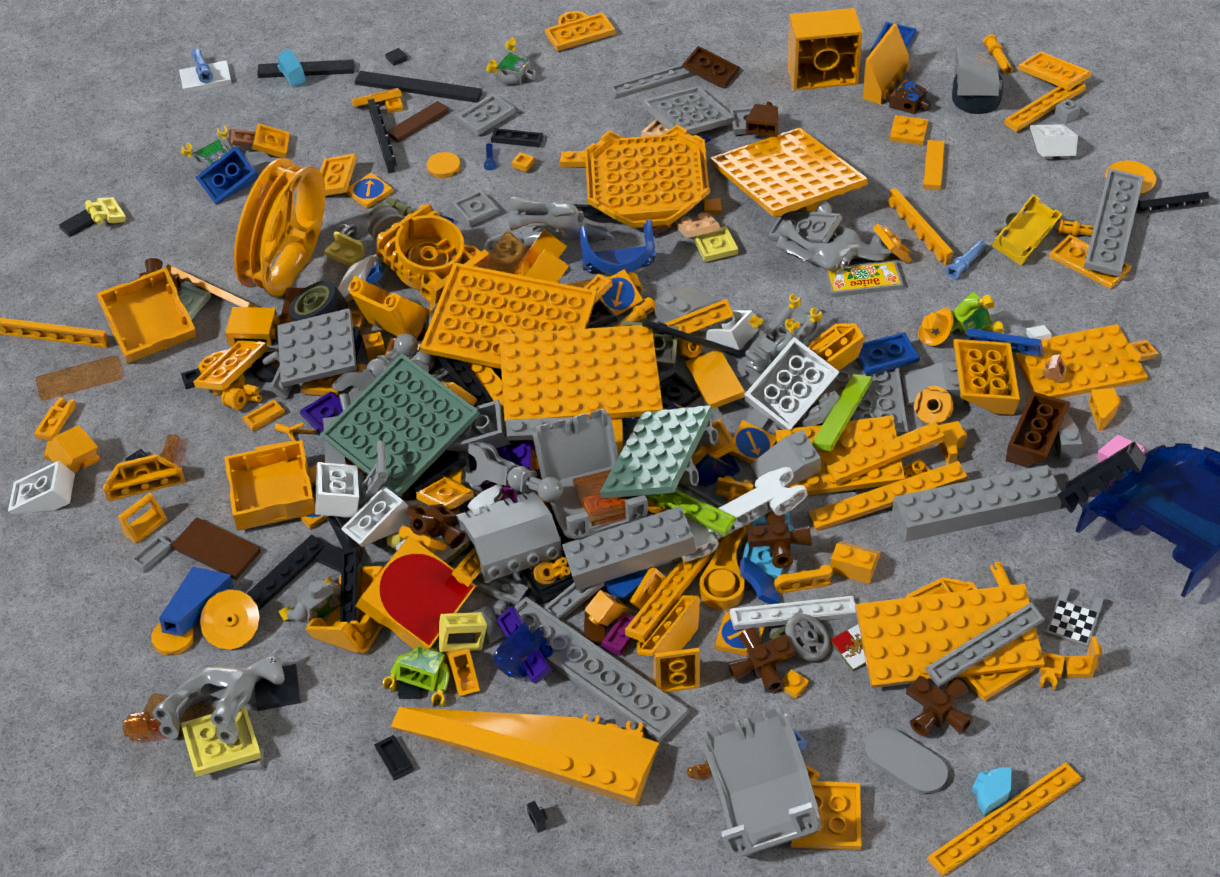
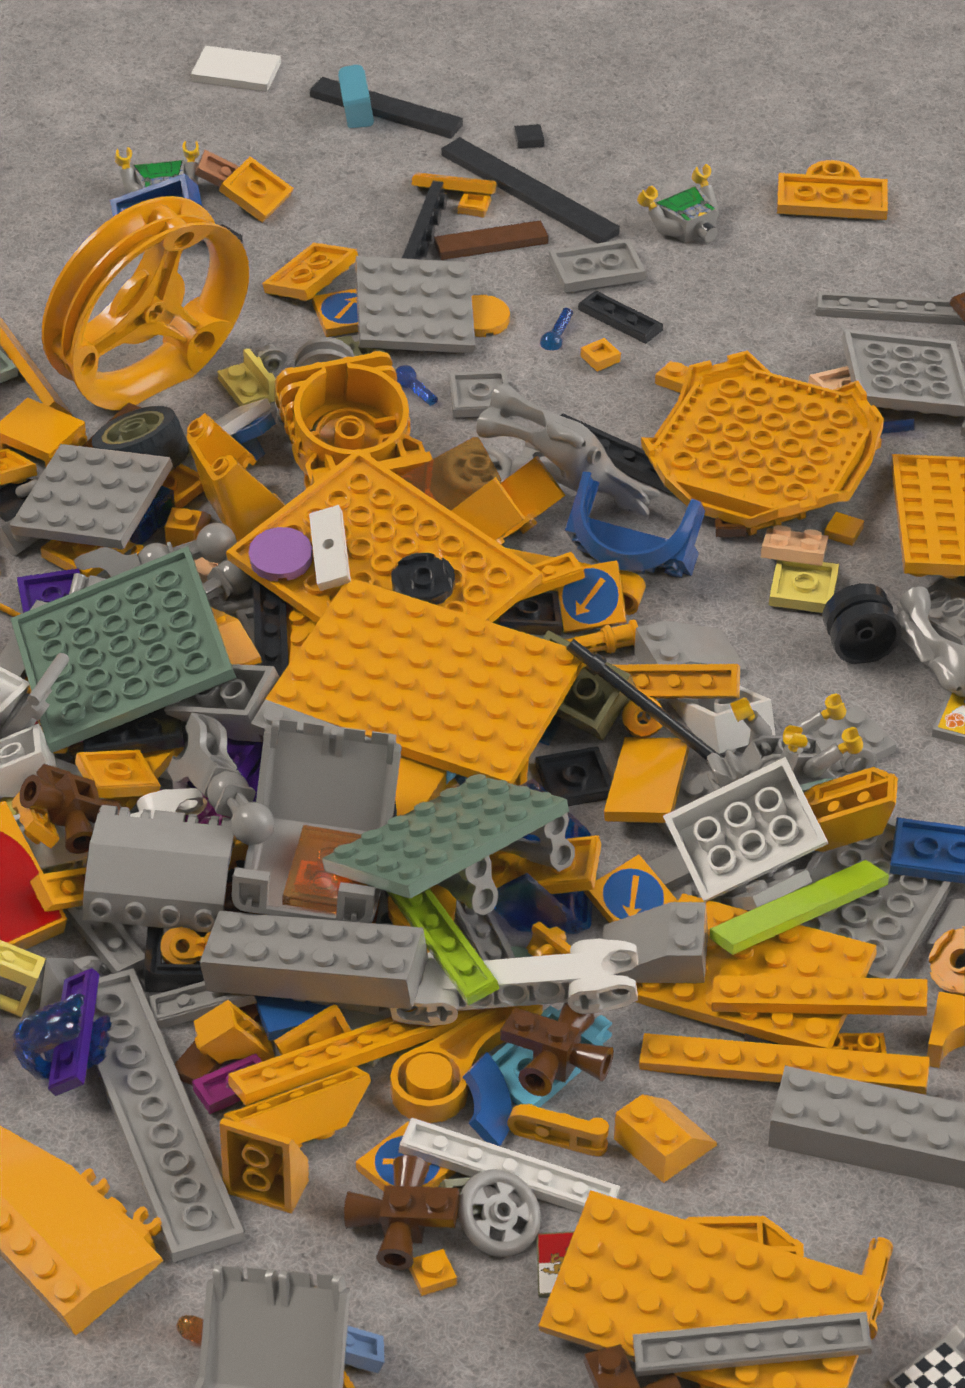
camera: 25 degrees right, 5 degrees down
(202, 68) = (234, 54): medium blue pin -> none
(408, 172) = (414, 304): none -> light grey plate
(452, 337) = (280, 554): none -> medium lavender tile
(479, 322) = (329, 548): none -> white tile
(538, 318) = (424, 577): none -> black tile
(764, 252) = (861, 623): none -> black wheel

